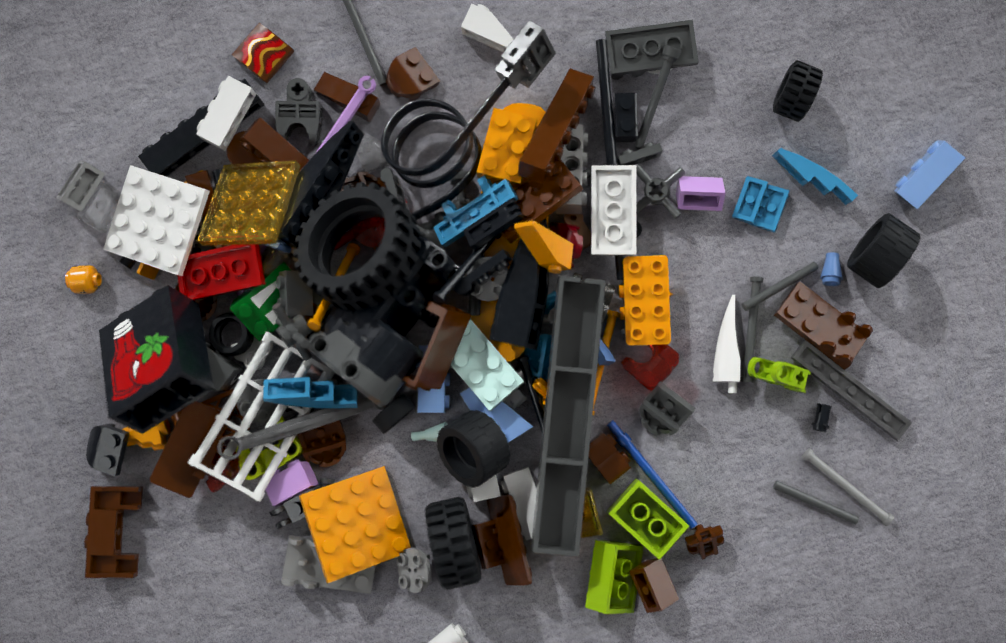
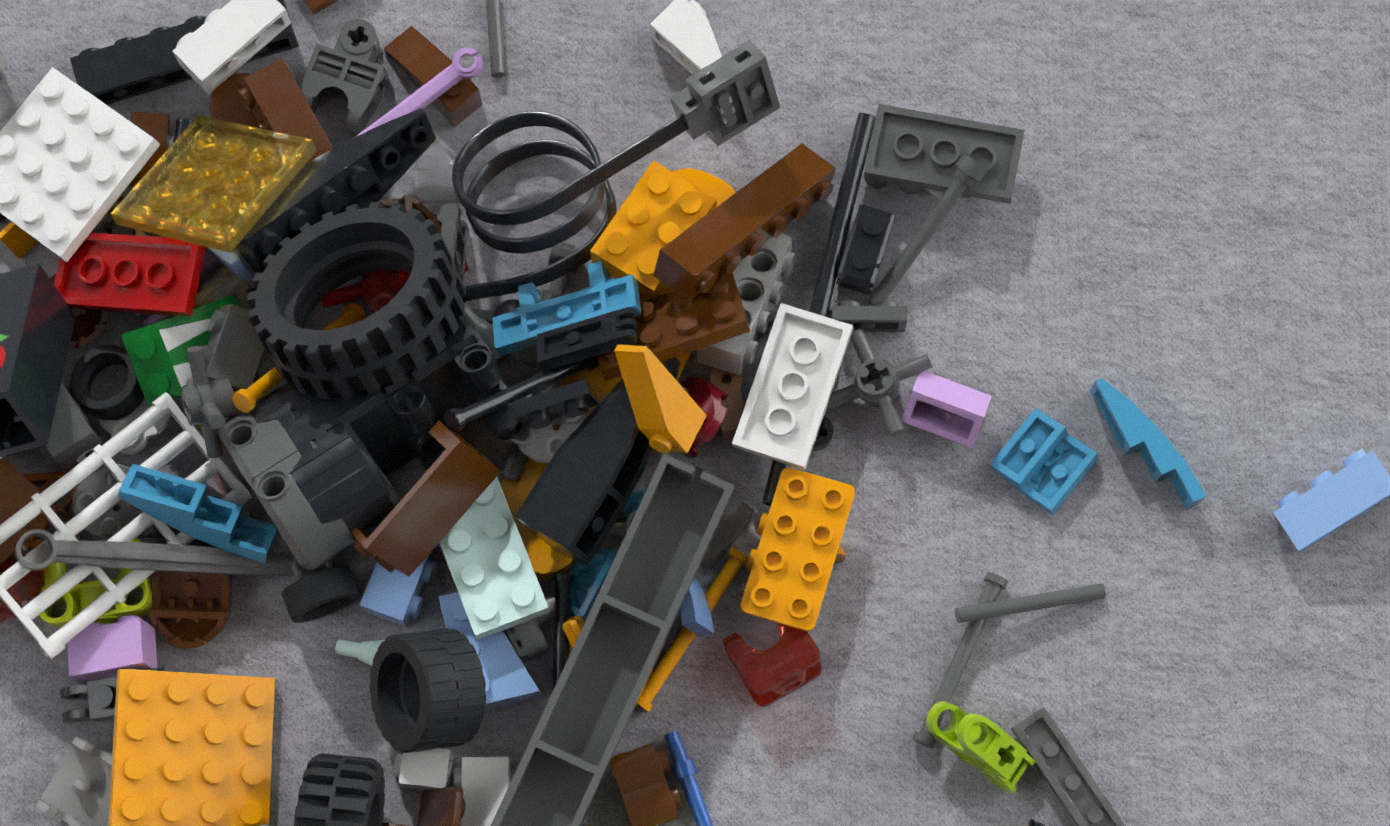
camera: 20 degrees right, 10 degrees down
(410, 75) = (545, 74): reddish brown slope -> none
(664, 410) = (767, 742): dark grey slope -> none
(727, 356) = (904, 690): white piece -> none
(797, 90) = (1158, 295): black tyre -> none
(823, 325) = (1082, 691): reddish brown hinge -> none
(831, 272) = (1125, 608): medium blue cone -> none
(883, 250) = (1215, 596): black tyre -> none

